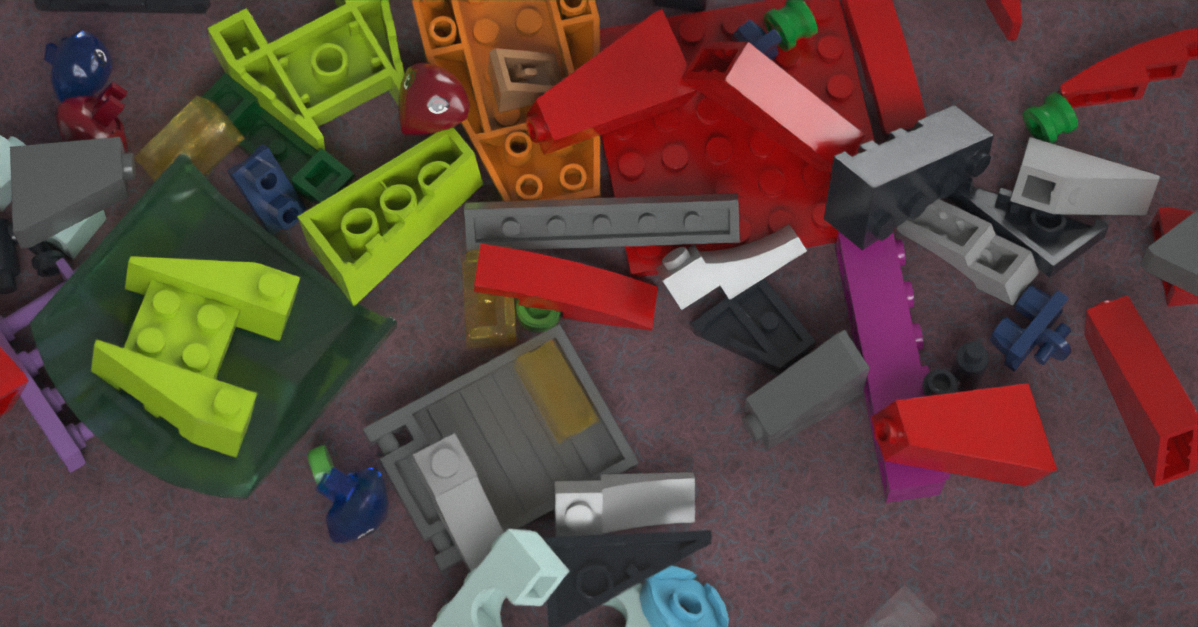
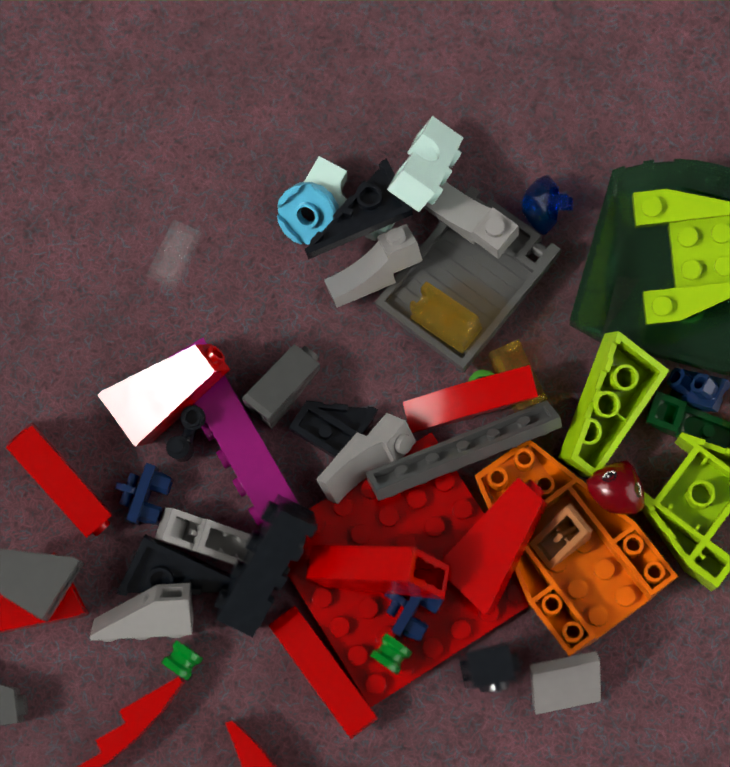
camera: 160 degrees right, 10 degrees up
(319, 461) = (575, 222): bright green tile -> none

